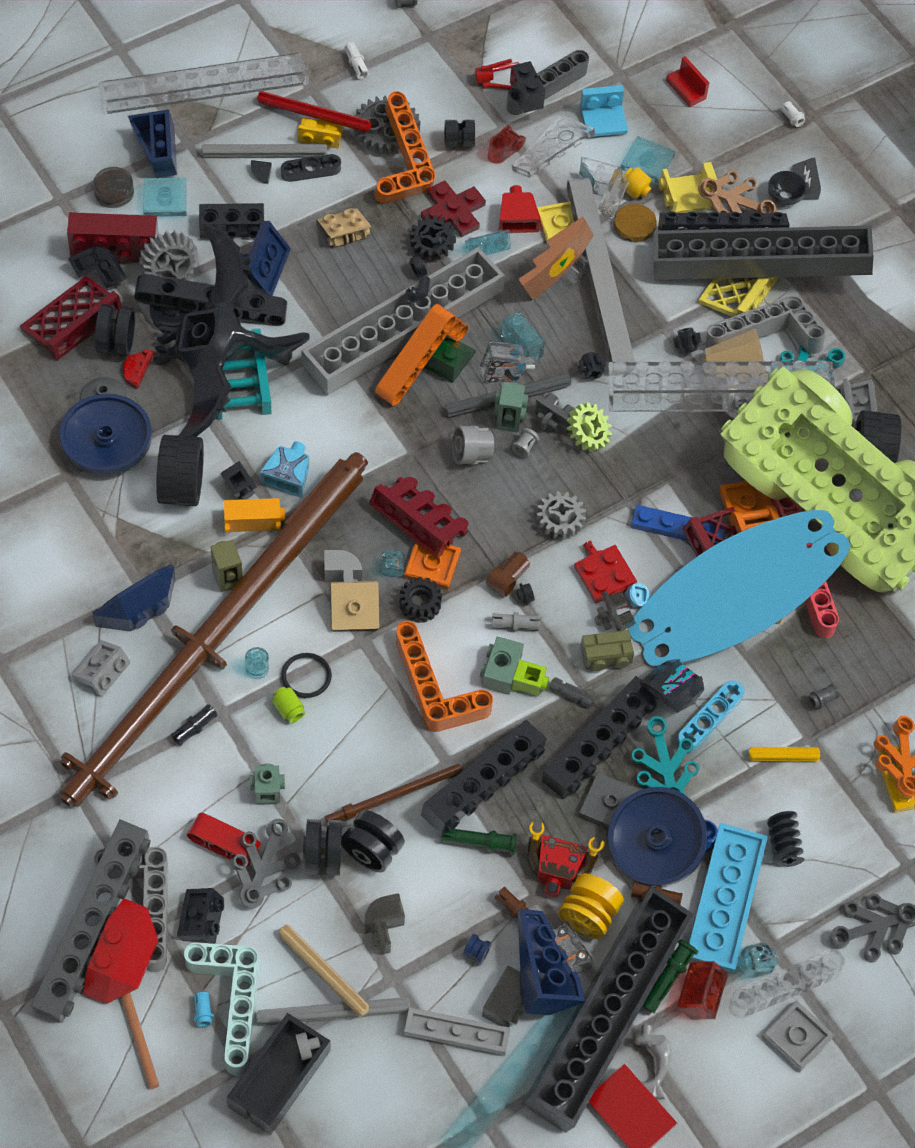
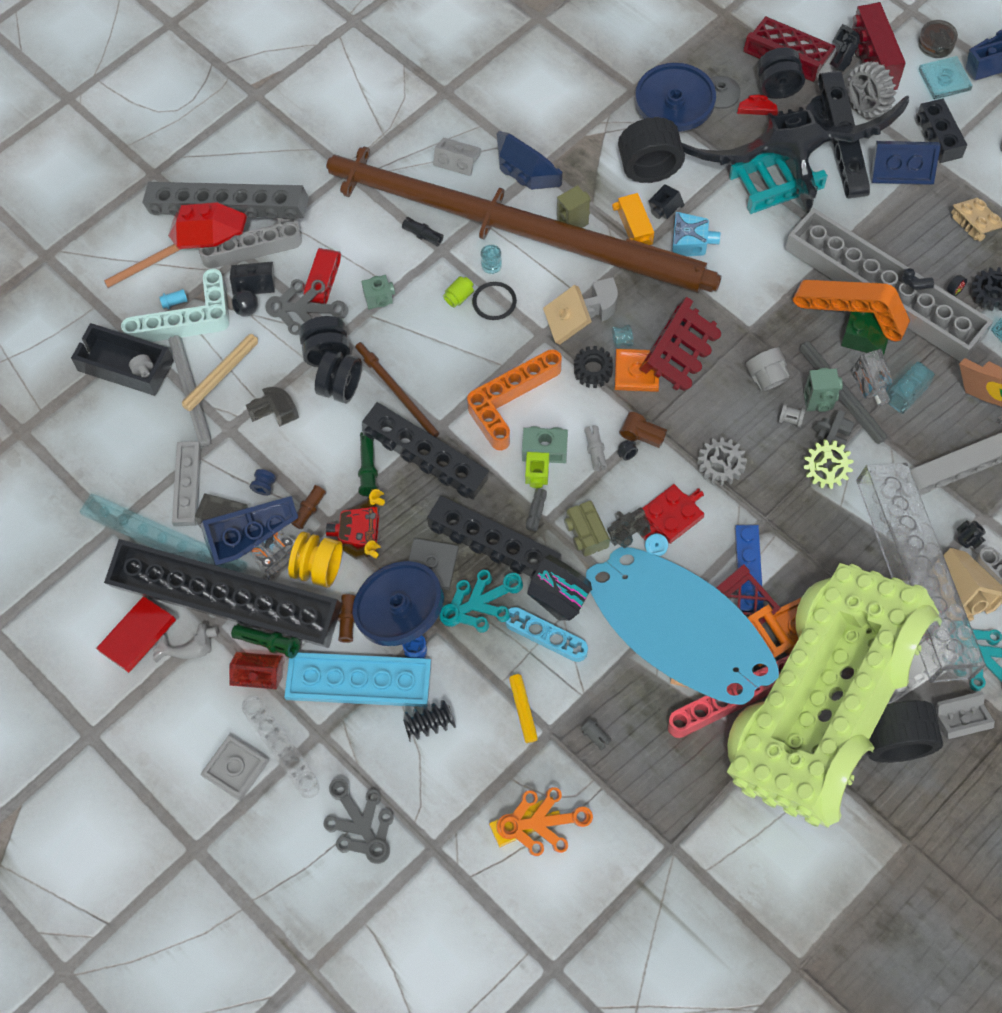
camera: 85 degrees right, 5 degrees up
(237, 927) = (244, 303): none -> black piece
(591, 365) = (903, 452): black gear -> none
(757, 960) = (298, 715): clear light blue head -> none

